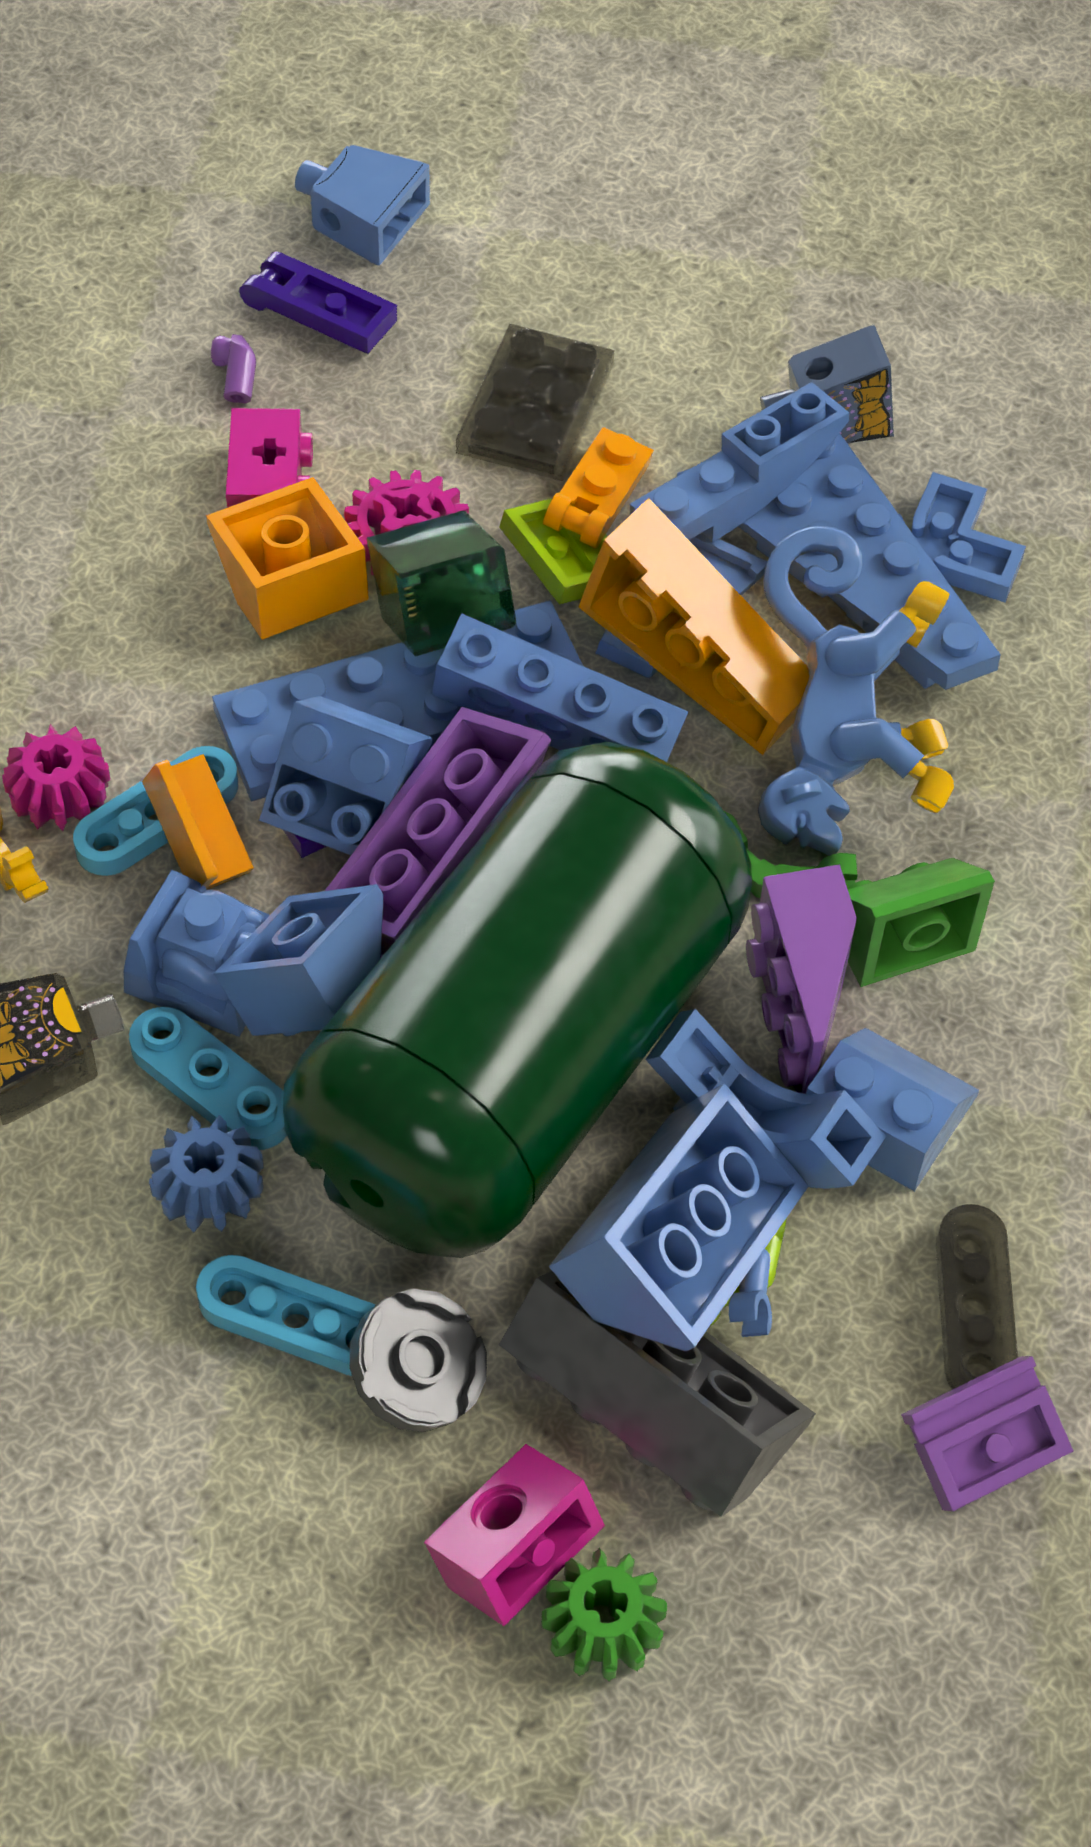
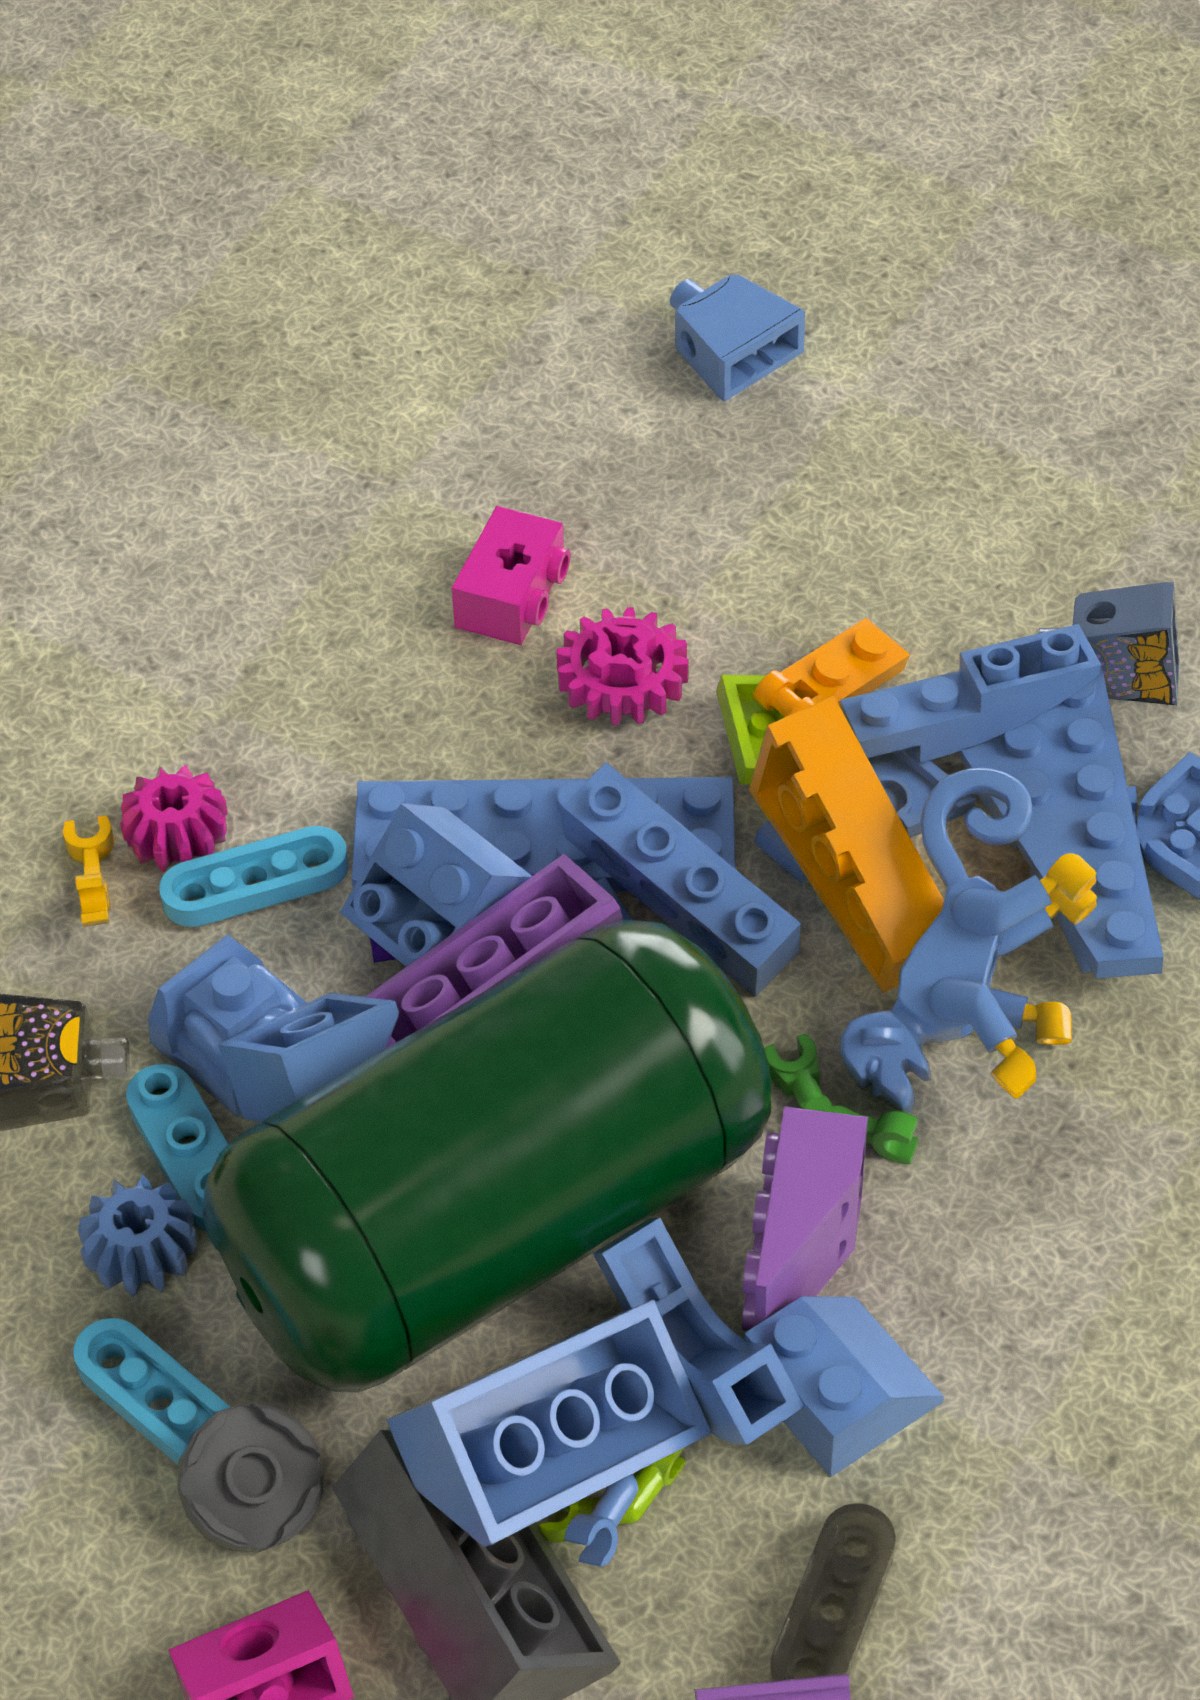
camera: 25 degrees right, 5 degrees down
(197, 821) = (281, 898): light orange panel -> none
(240, 364) = (536, 460): medium lavender arm -> none
(289, 557) = (487, 666): light orange slope -> none
(319, 301) = (643, 423): dark purple plate -> none
(436, 573) = (620, 718): clear green piece -> none
(535, 402) = (814, 575): clear smoke plate -> none
(917, 918) = (944, 1201): bright green slope -> none

